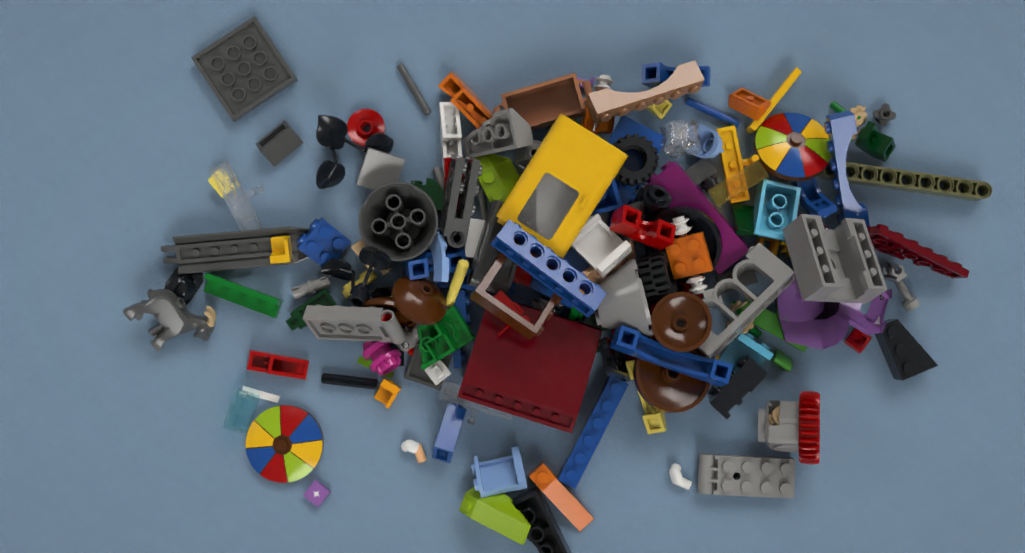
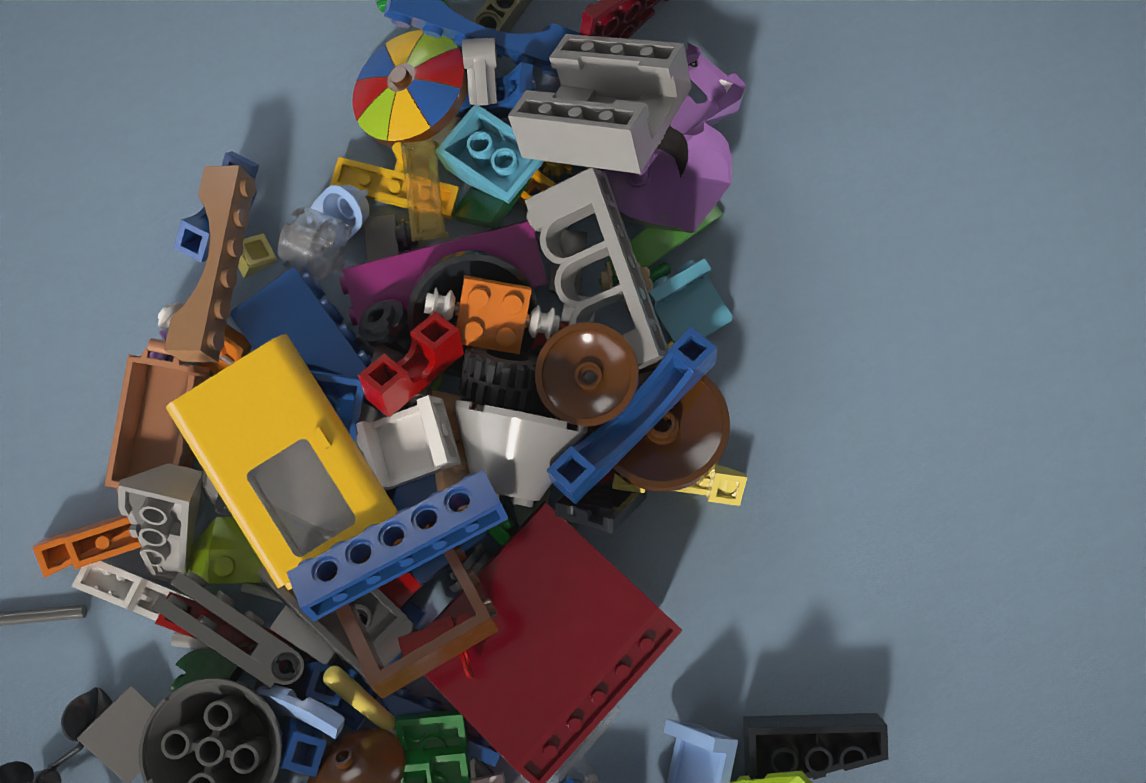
camera: 55 degrees left, 5 degrees down
(360, 120) = (37, 725): red dish -> none
(560, 496) = (774, 689): orange slope -> none
(592, 432) = (698, 592): blue arch -> none
(649, 157) = (299, 302): black tyre -> none
(676, 477) = (827, 492): white arm -> none
(712, 112) = (303, 181): blue bar -> none
(742, 380) = (723, 324): black wedge -> none
(748, 103) = (316, 122): orange slope -> none
(756, 475) = (880, 372): light grey hinge -> none
(781, 360) = (721, 252): bright green slope -> none
(787, 83) = (331, 85): yellow tile -> none
(792, 426) = (828, 280): piece -> none
(823, 181) = (480, 62): none -> light grey piece
(857, 340) = (741, 129): red tile -> none
(902, 351) = (788, 72): black wedge -> none
(910, 302) = (721, 29): light grey bar -> none

